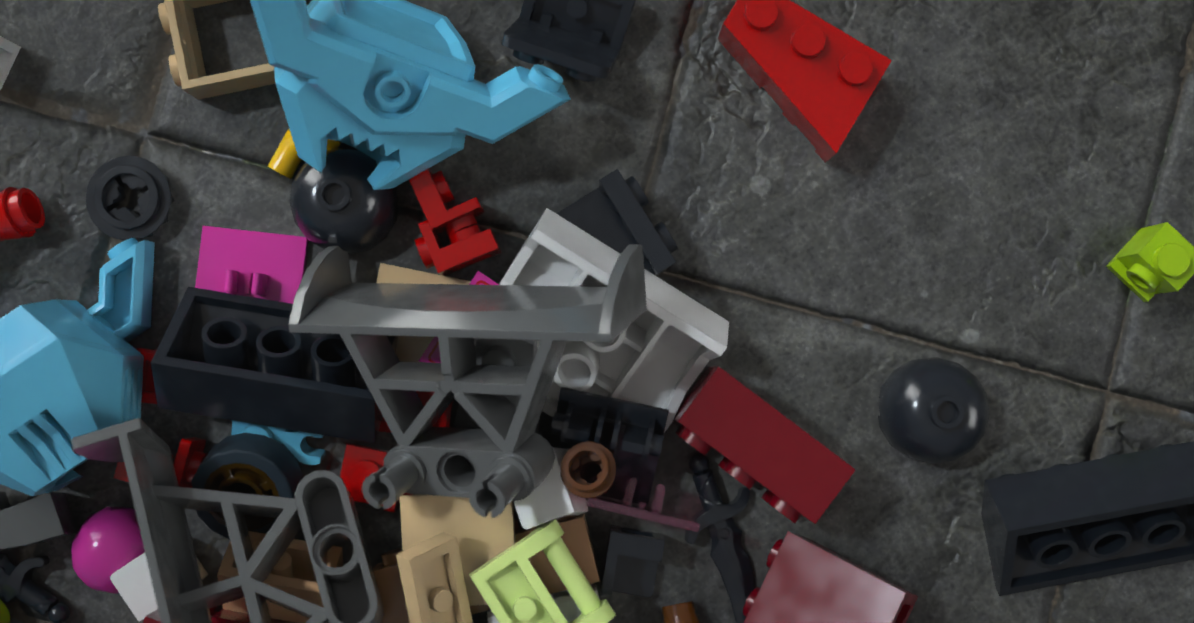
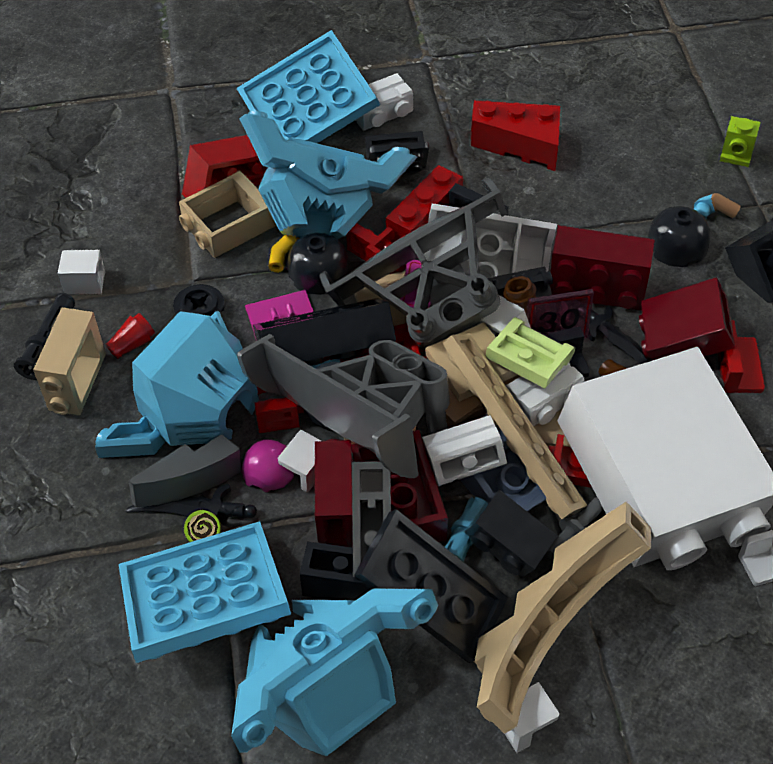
camera: 20 degrees left, 35 degrees down
(558, 171) = (415, 208): none -> red brick
(1034, 369) = (714, 203): none -> arm

